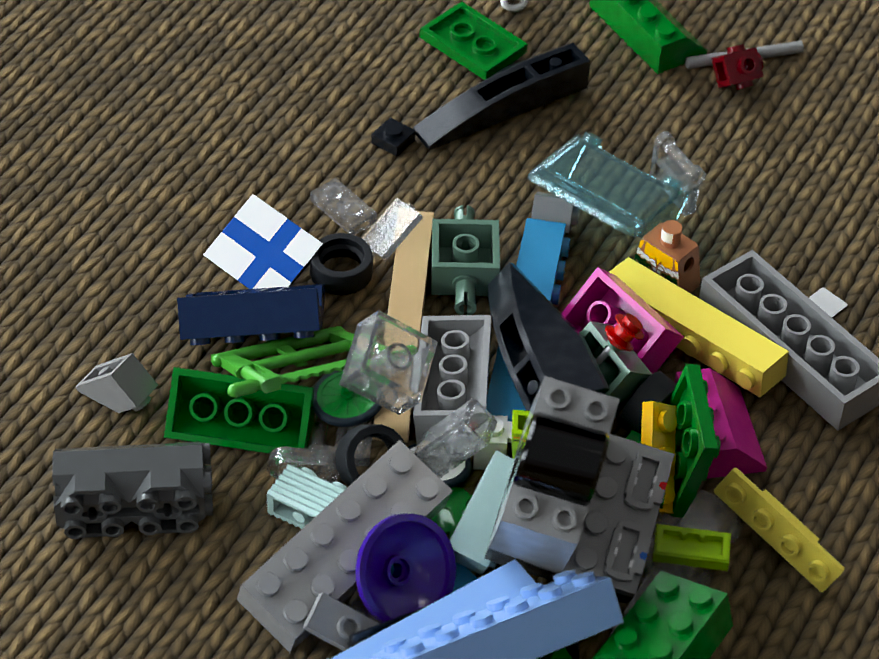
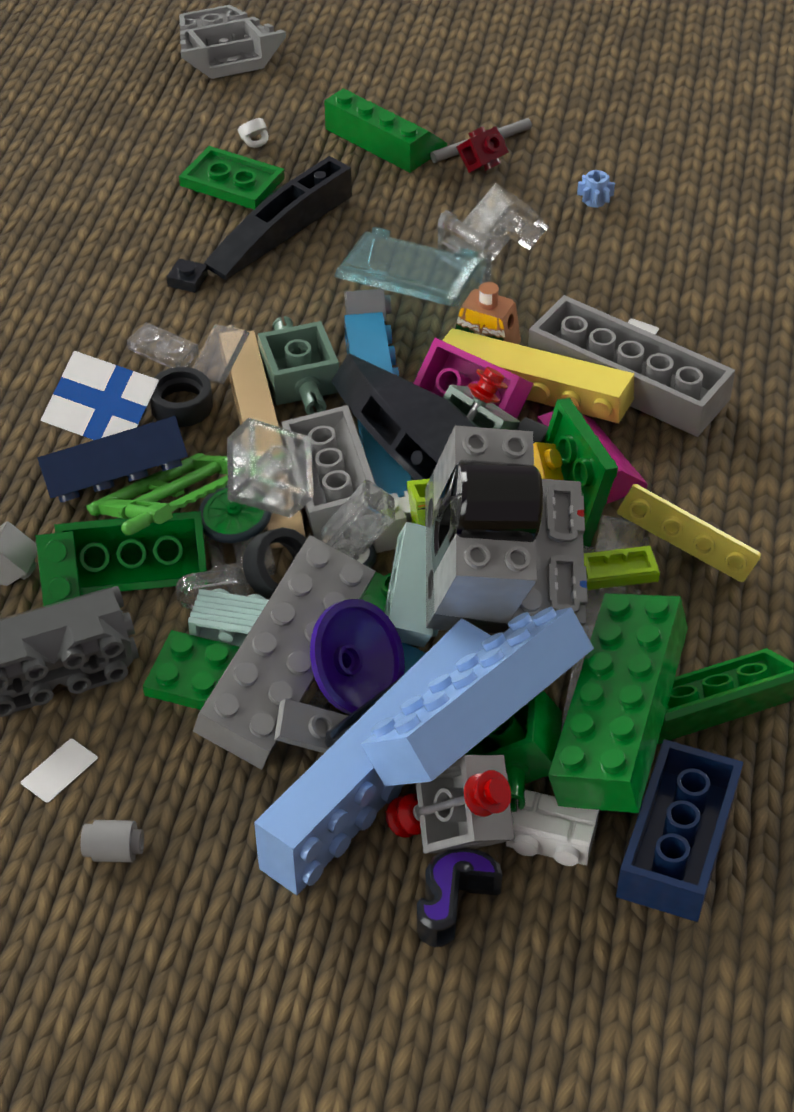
camera: 15 degrees left, 0 degrees up
(107, 602) = (59, 770): none -> white sticker
(166, 409) = (58, 567): none -> green plate
(252, 536) = (188, 669): none -> green plate
(727, 149) = (506, 219): none -> clear brick
(840, 137) = (595, 188): none -> light blue gear

